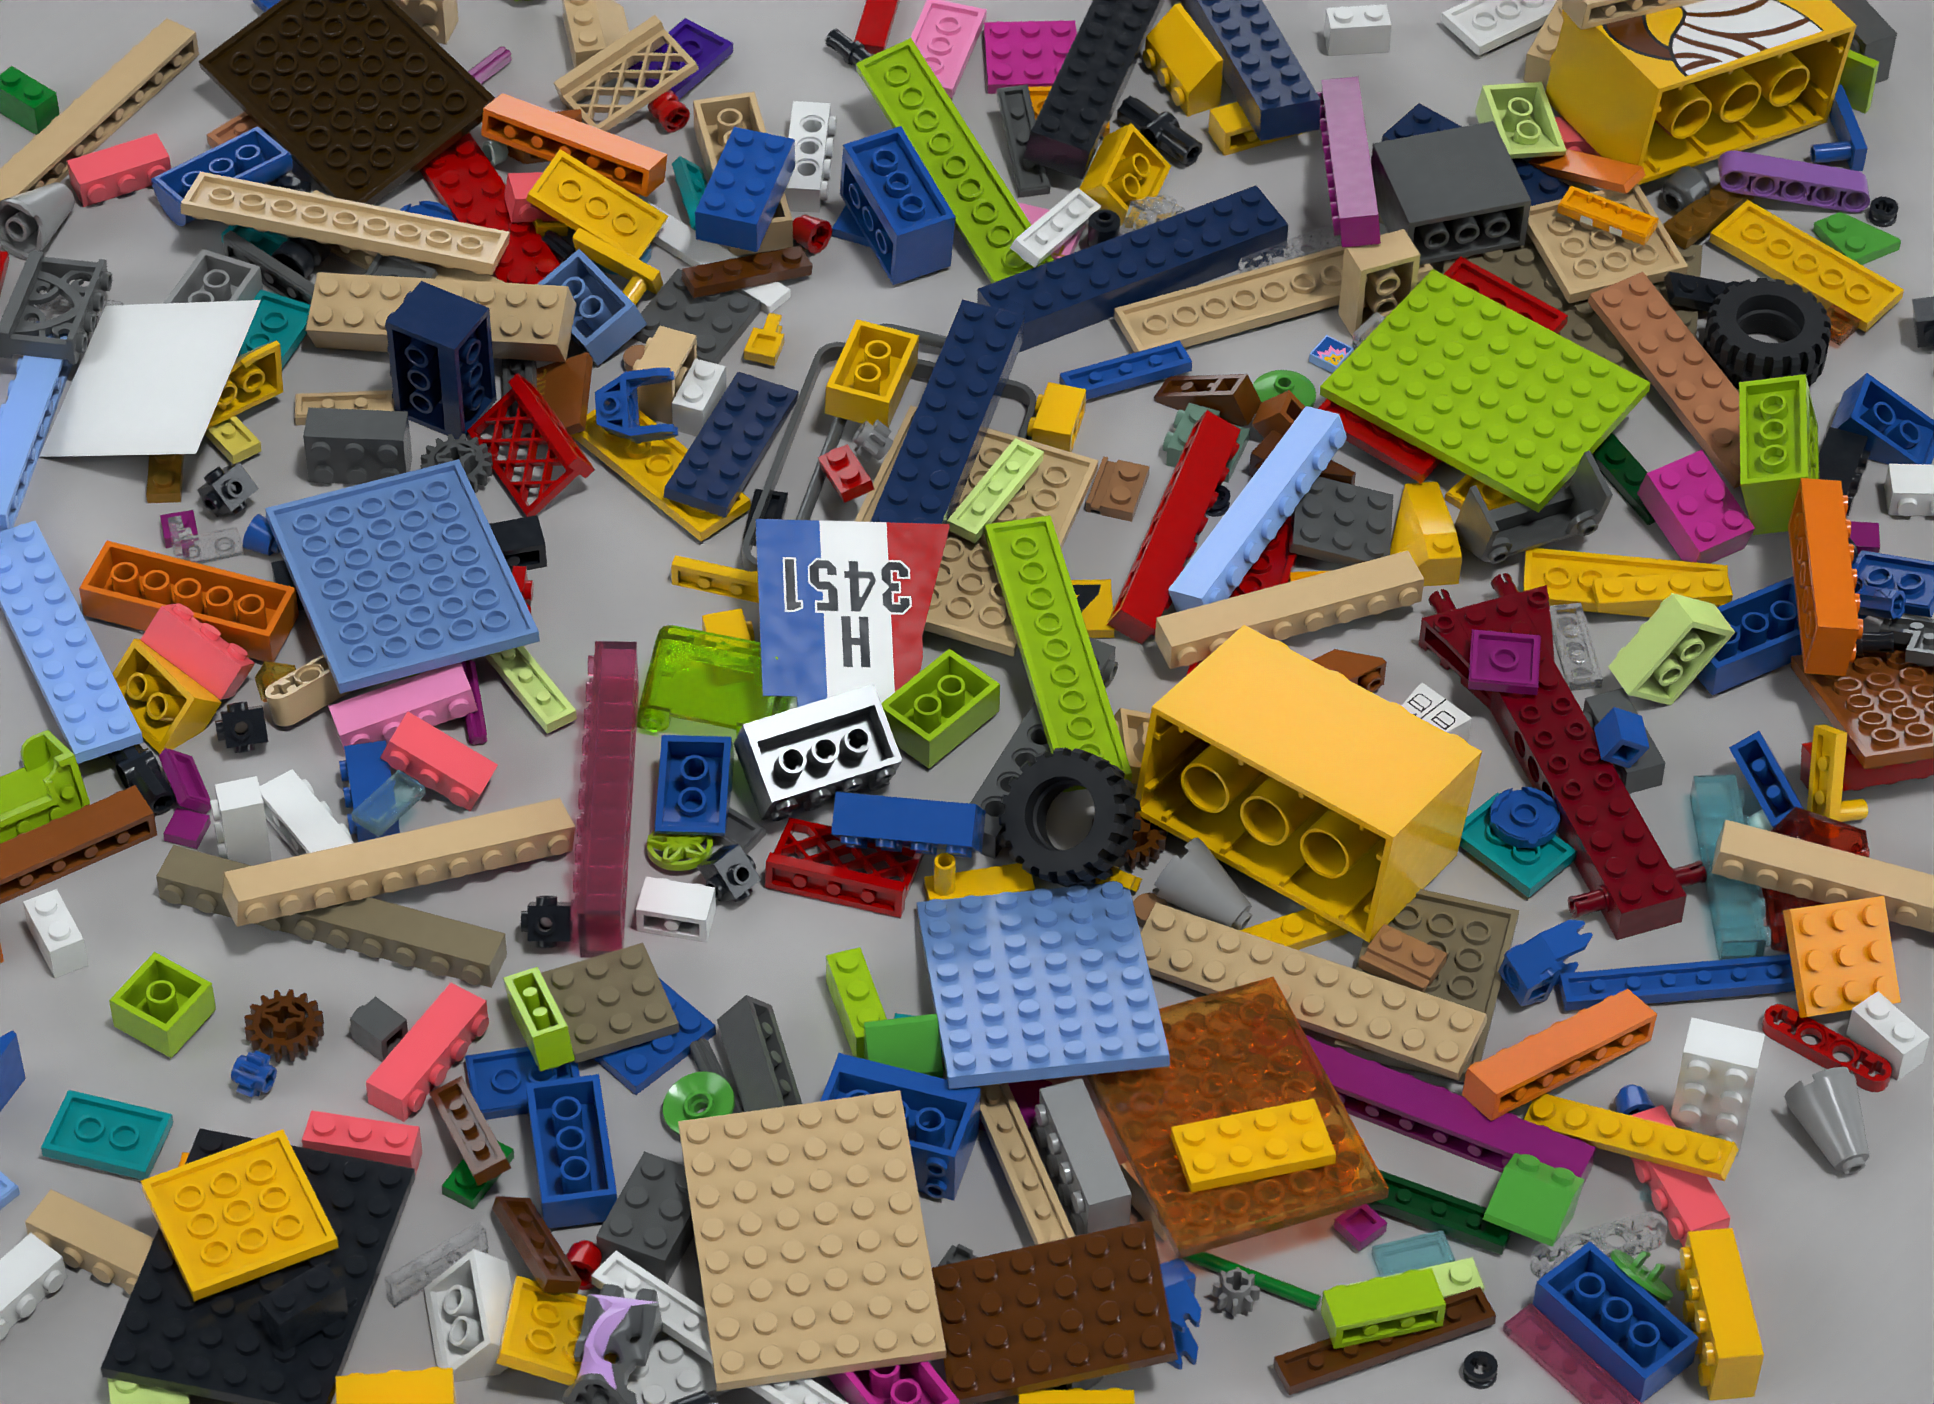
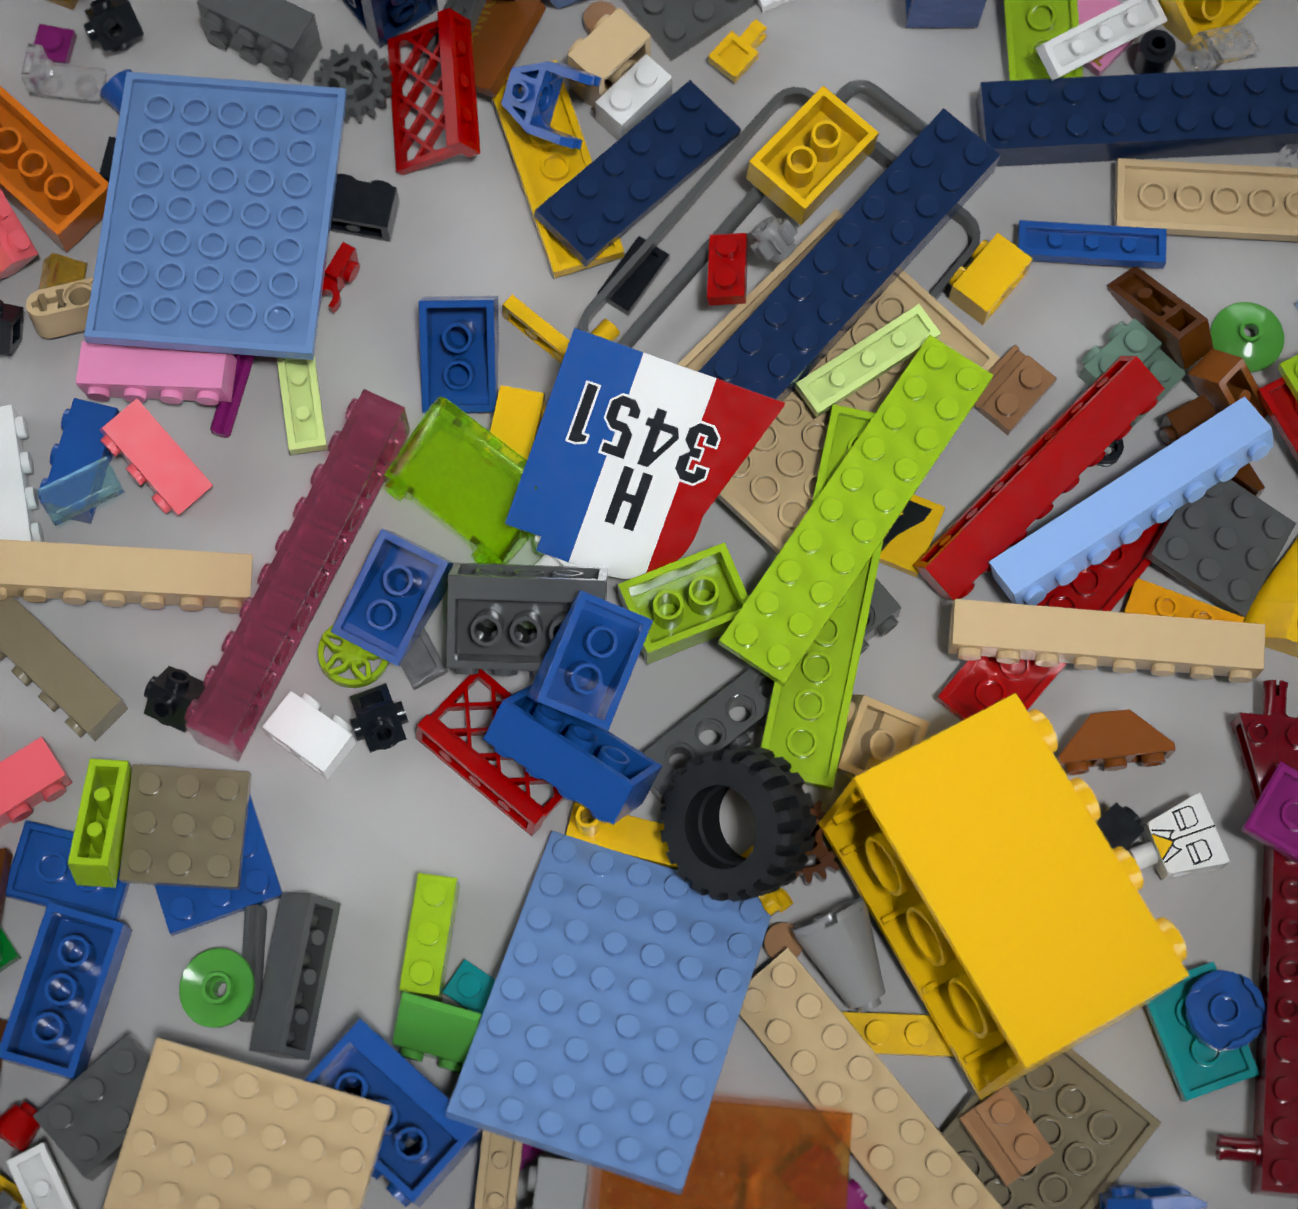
camera: 25 degrees right, 25 degrees up
(646, 600) = (459, 351): none -> blue slope
(891, 743) = (591, 660): none -> blue slope
(1044, 585) = (855, 510): none -> lime plate

